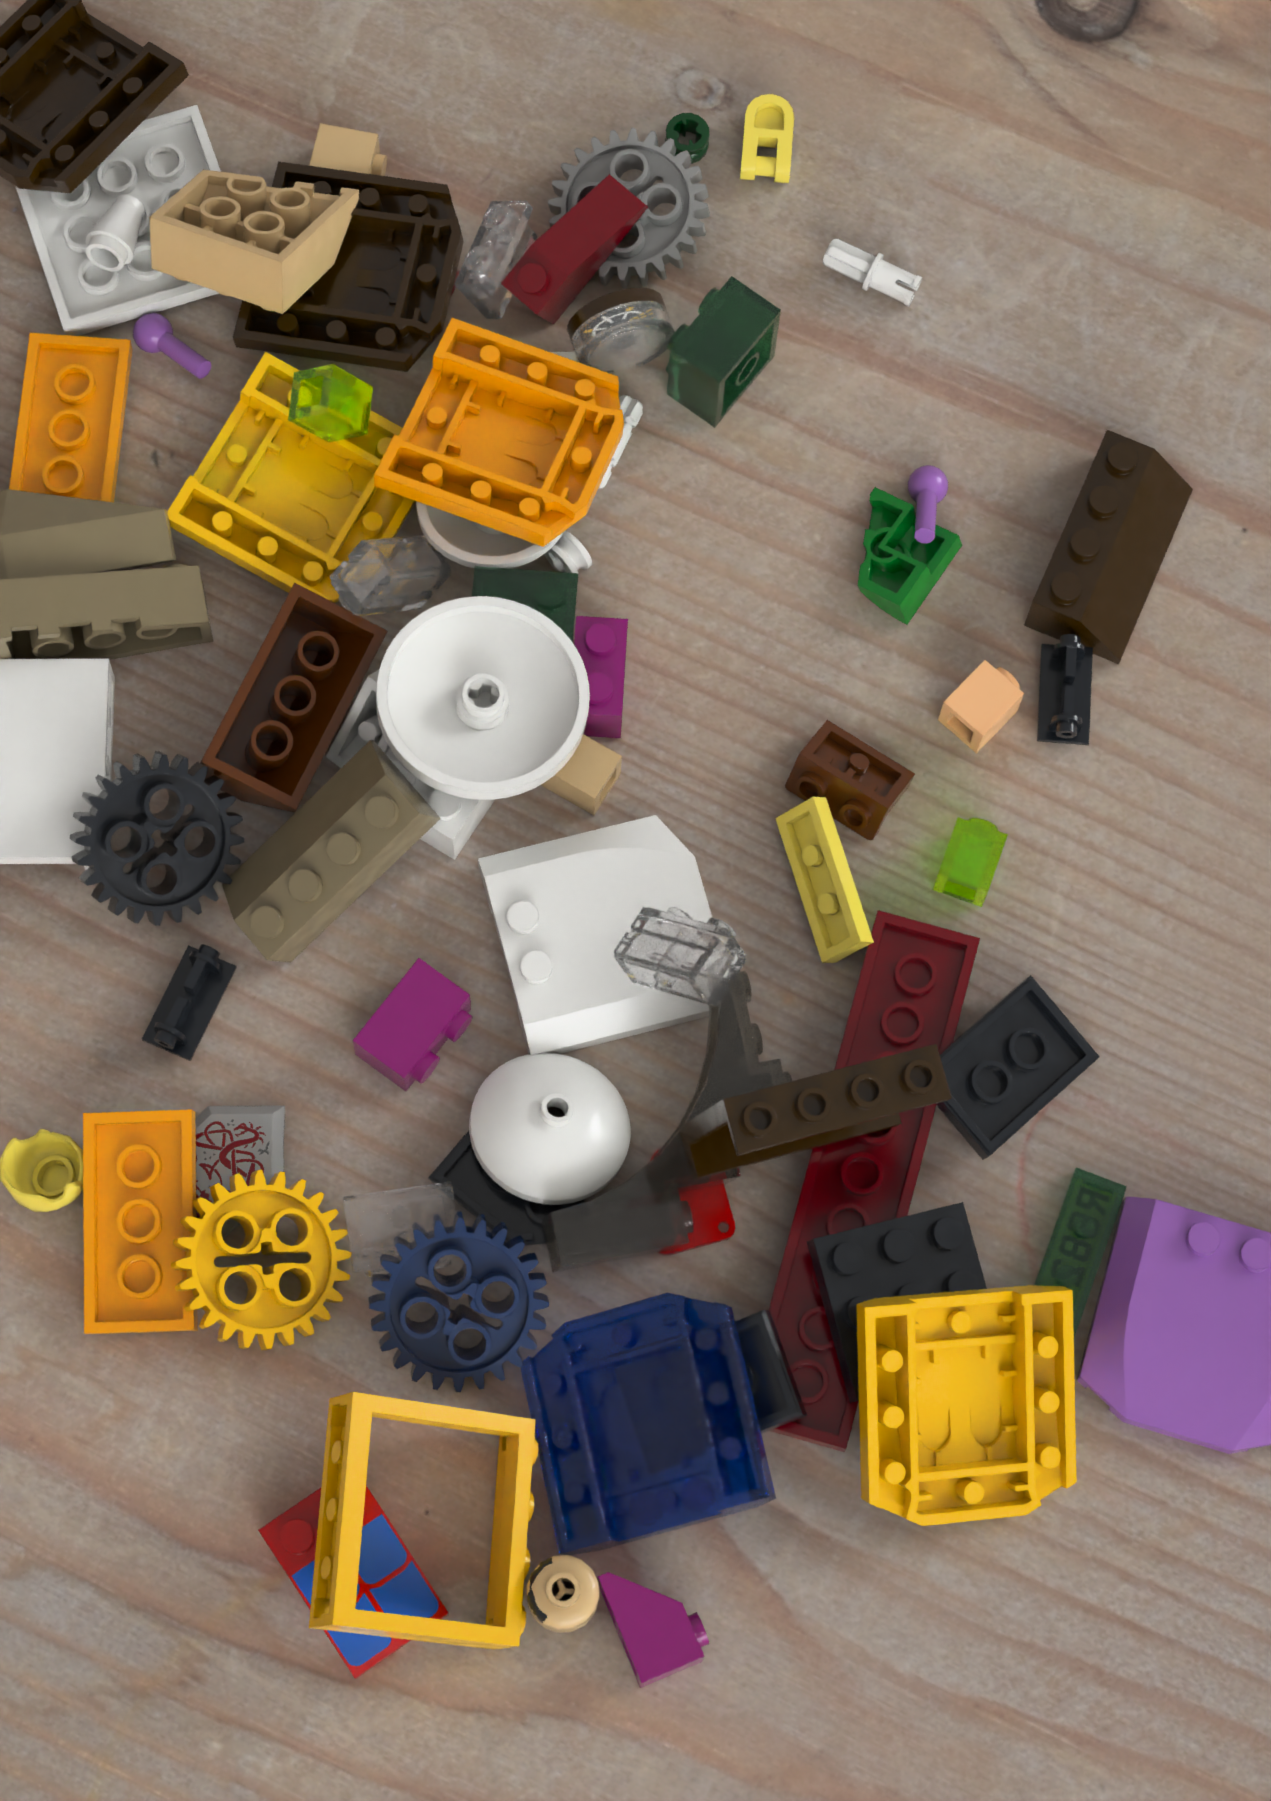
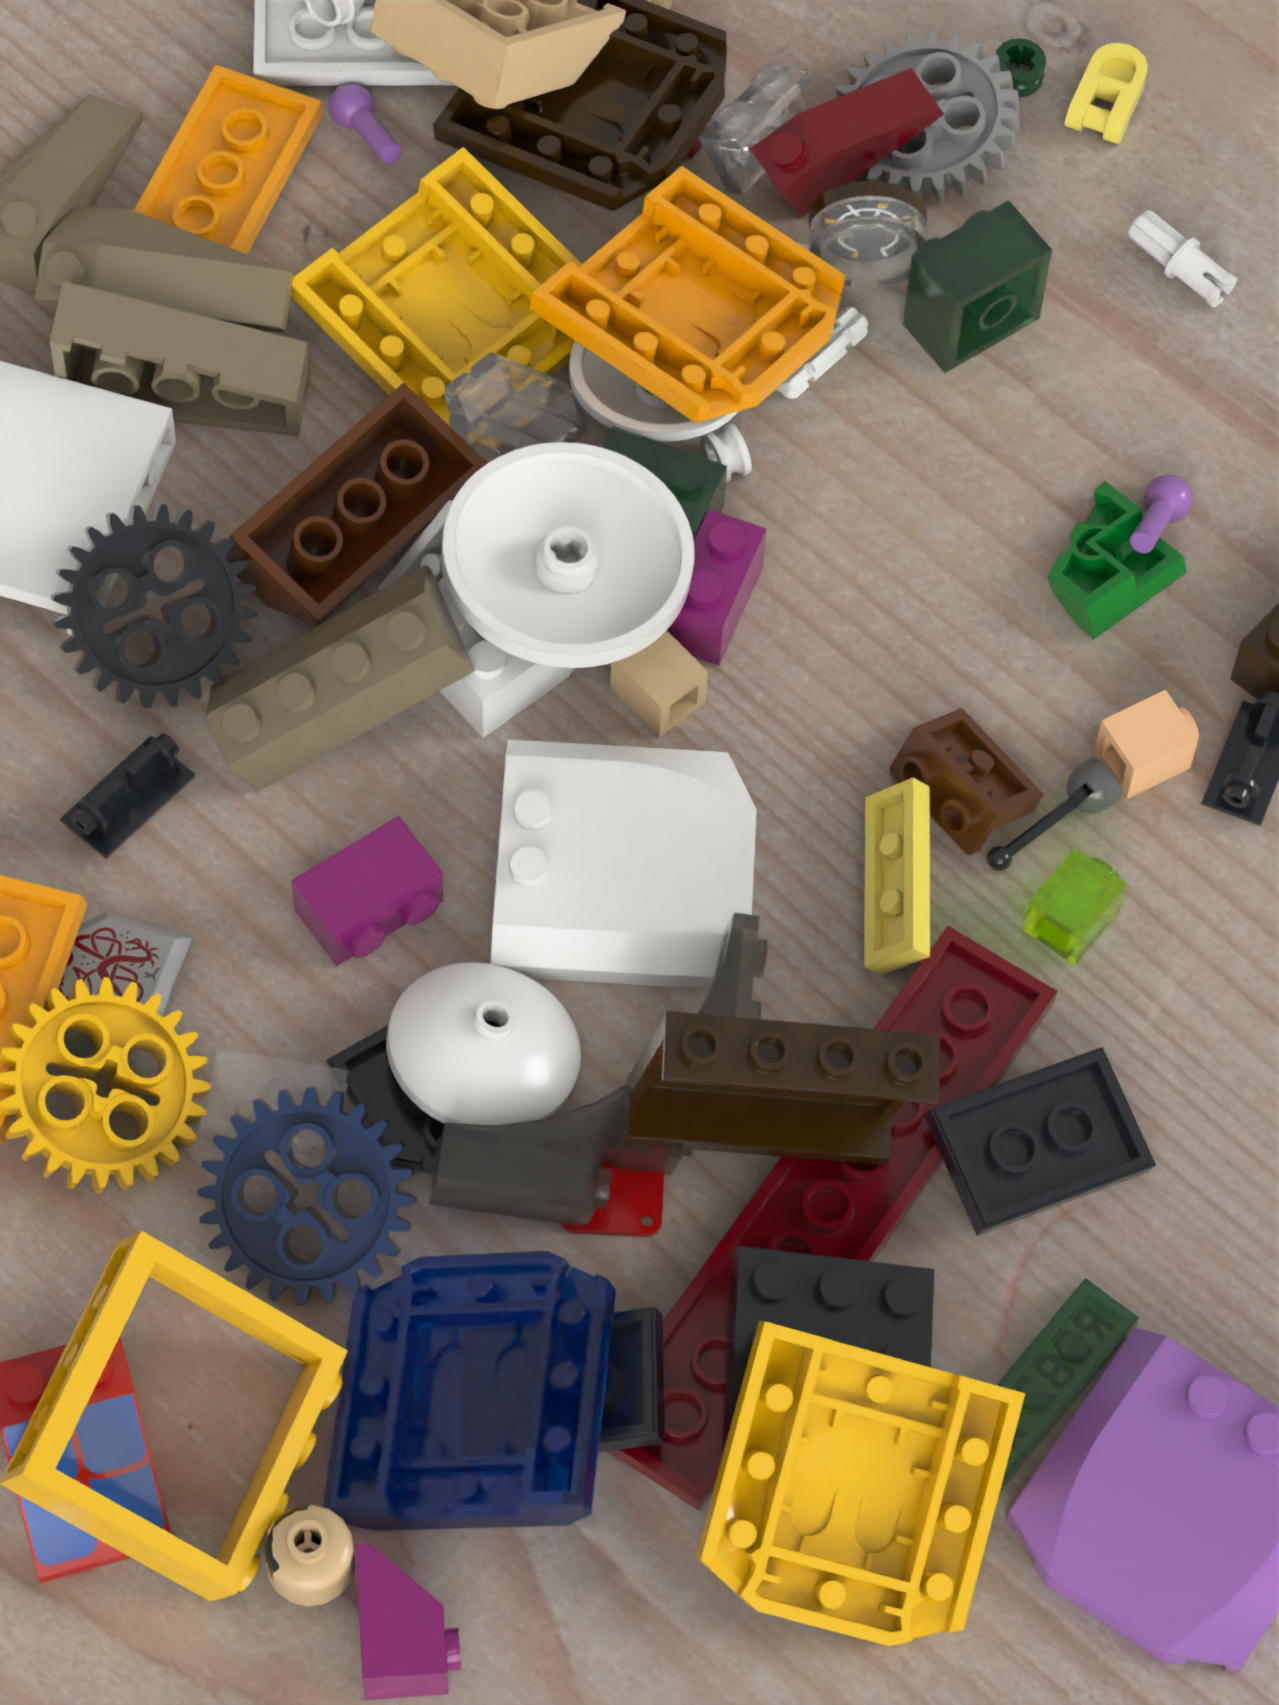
camera: 20 degrees right, 10 degrees down
(330, 403) = (512, 211): clear neon green brick -> none
(681, 954) = (694, 891): clear brick -> none
(948, 758) = (1089, 790): none -> hinge

